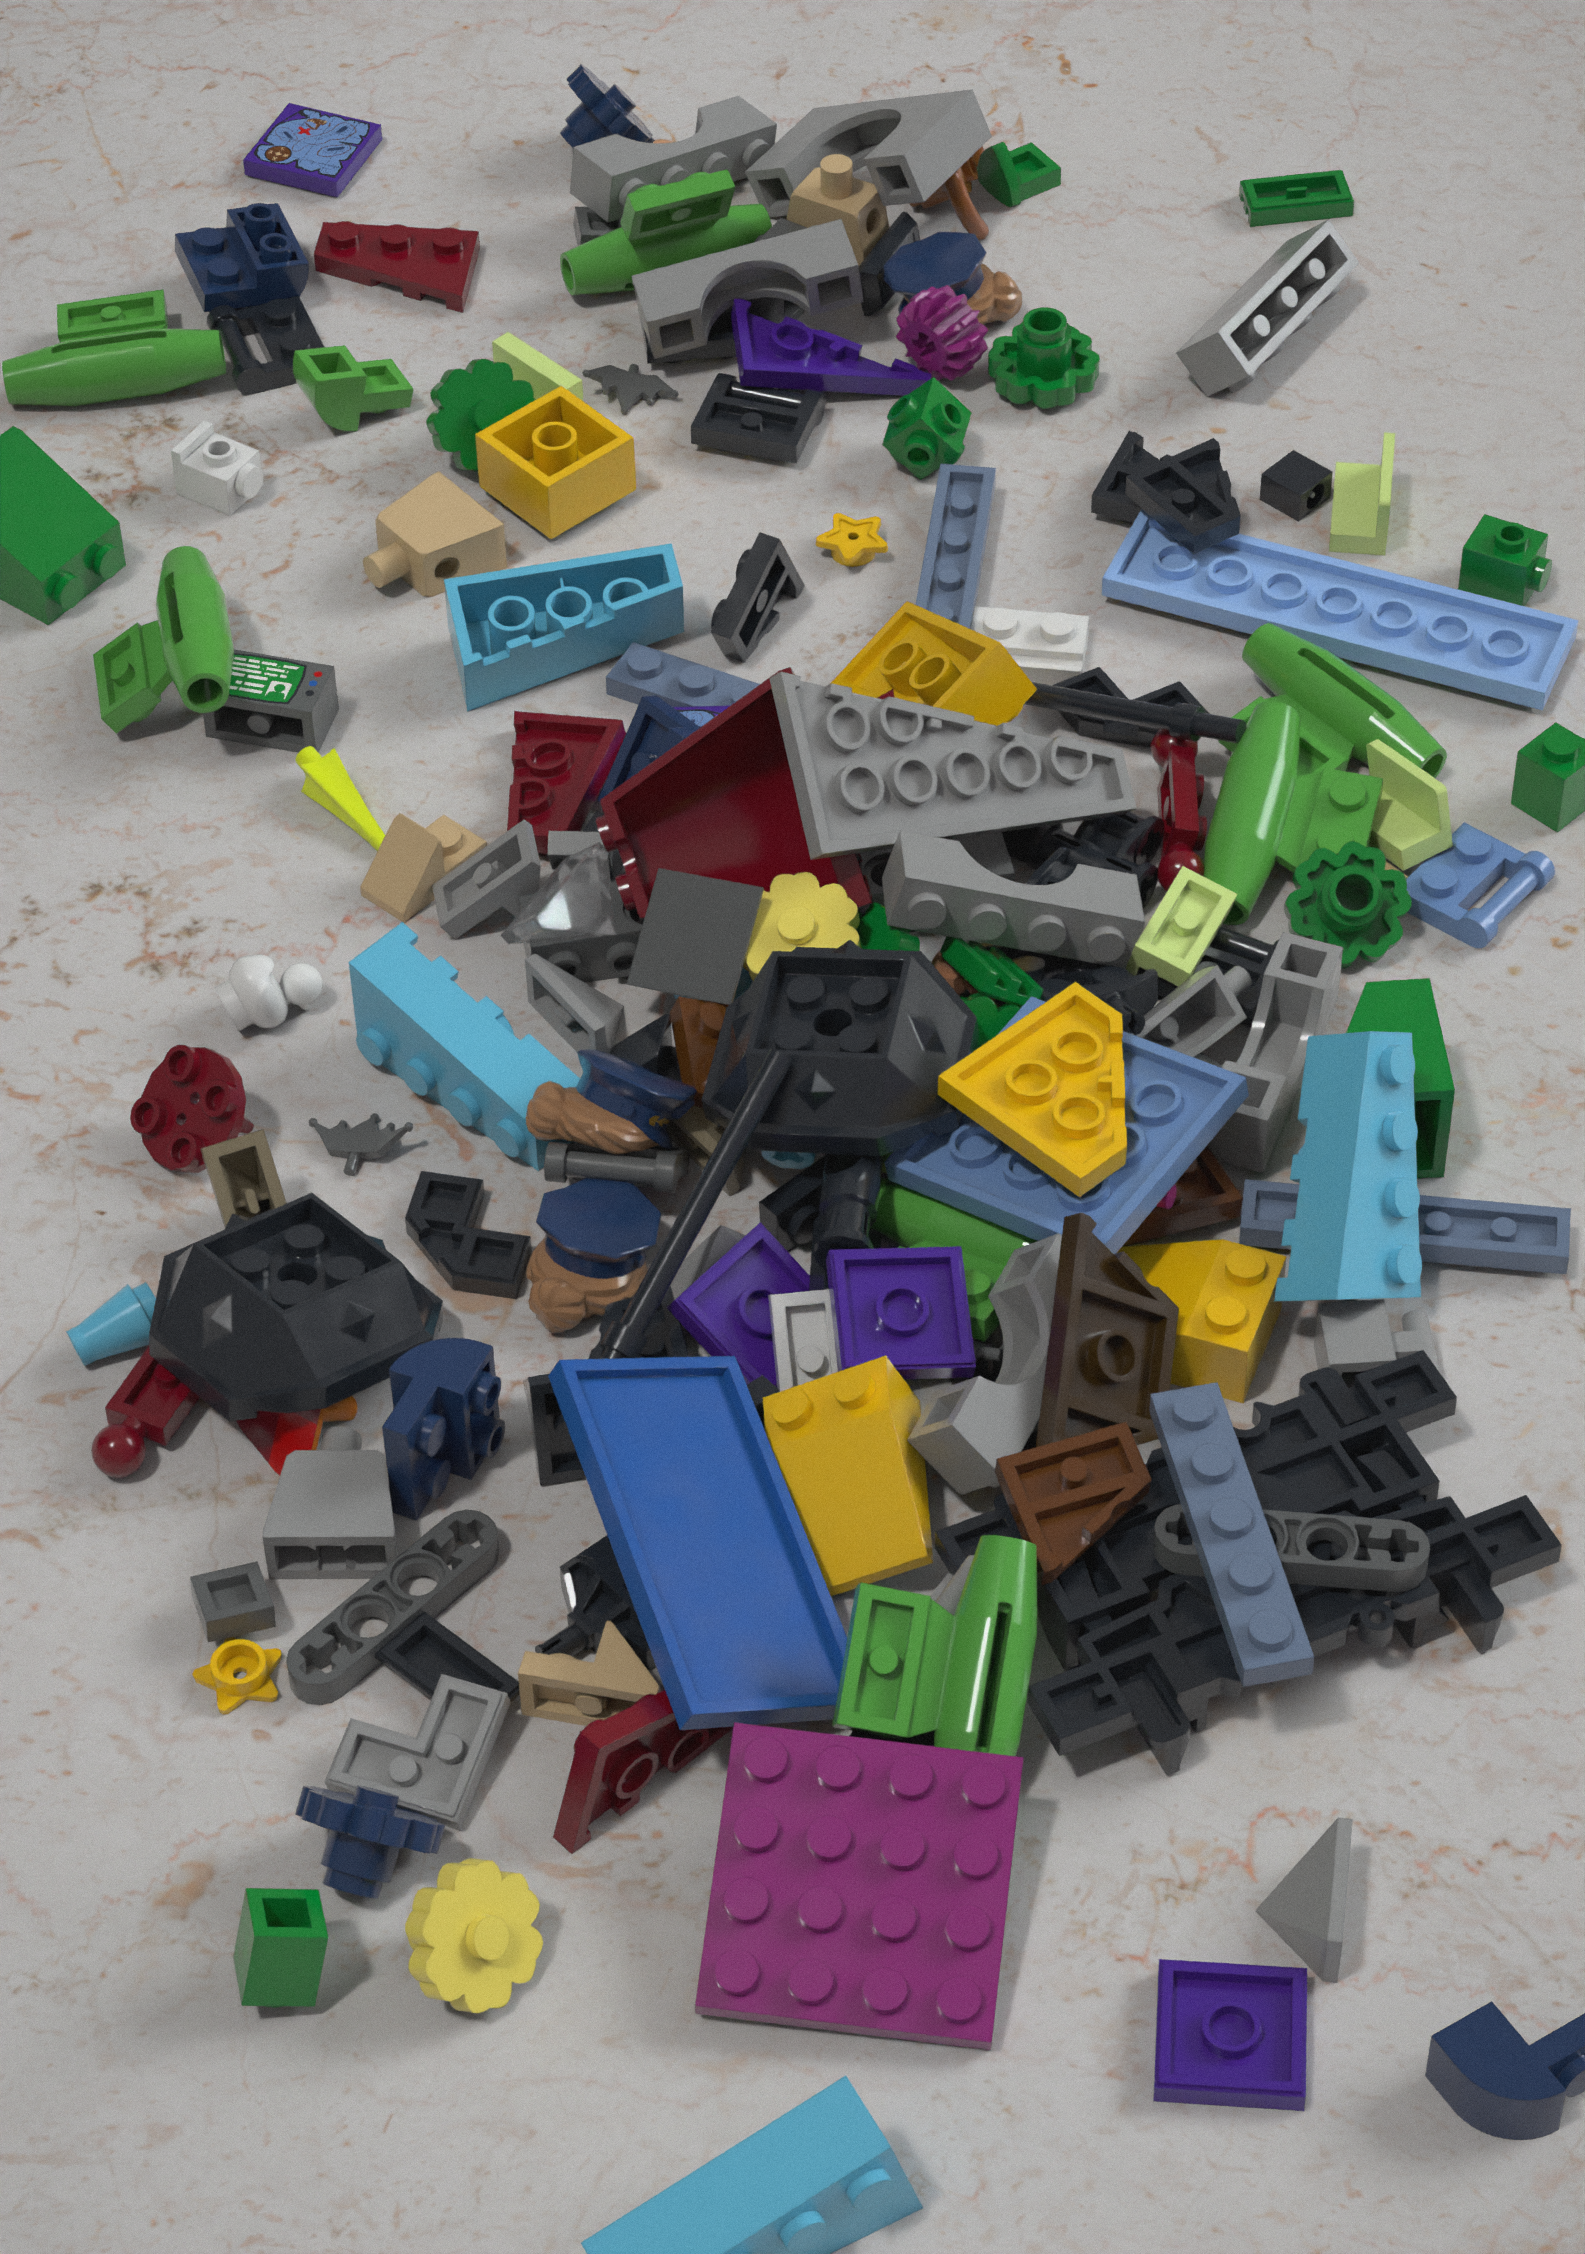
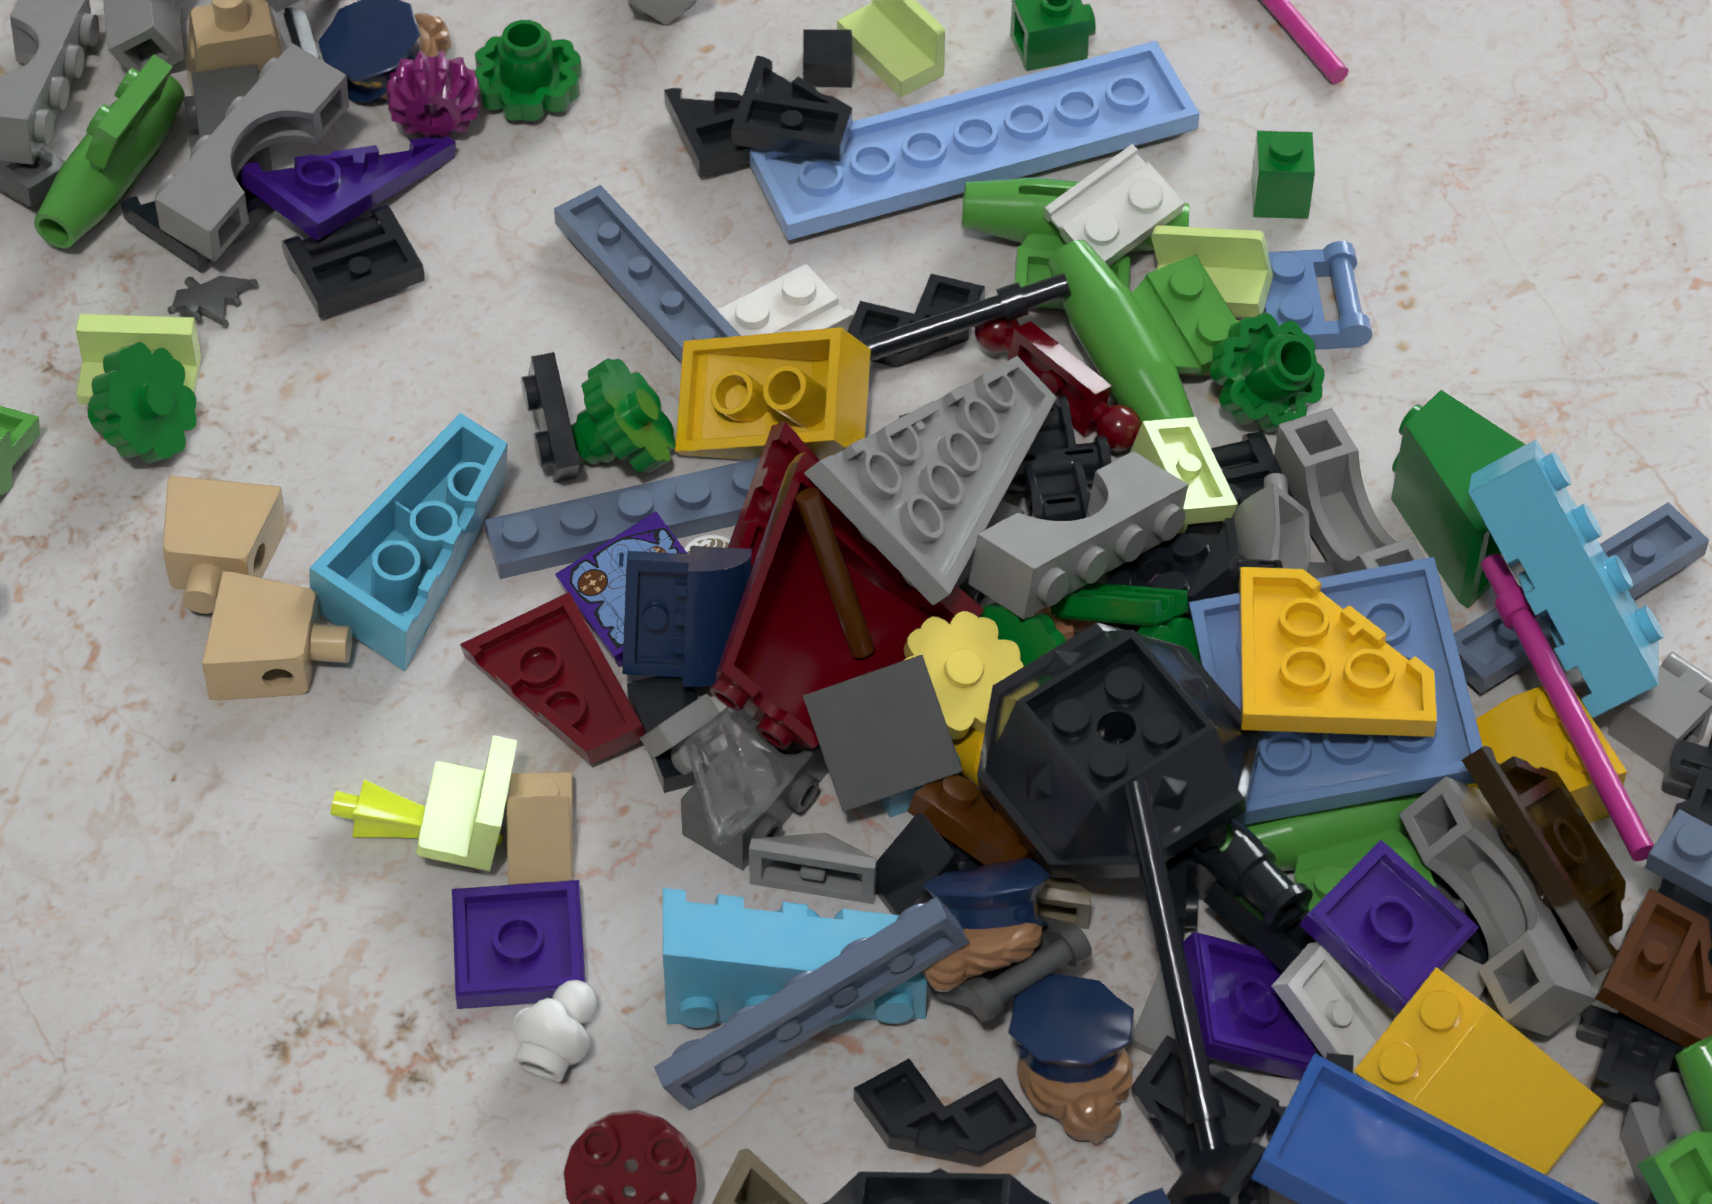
camera: 45 degrees left, 5 degrees up
(185, 646) = (136, 773): bright green plate -> none
(276, 703) = (250, 775): dark grey brick -> none
(319, 923) = (516, 942): none -> dark purple tile
(359, 1142) = (768, 1099): dark grey piece -> none
(362, 819) = (467, 809): none -> yellowish green panel
(384, 622) = (267, 639): none -> tan torso
(427, 1074) = (811, 1003): none -> sand blue plate
(489, 881) = (634, 797): light grey slope -> none
(556, 462) = (250, 404): yellow brick -> none
(763, 791) = (835, 572): none -> reddish brown bar
(805, 626) = (622, 419): none -> green plant
(852, 540) = (549, 330): yellow plate -> none
(927, 429) = (512, 185): green brick -> none
(1236, 1279) = (1518, 615): none -> dark pink bar
(1356, 705) = (1115, 206): none -> white plate

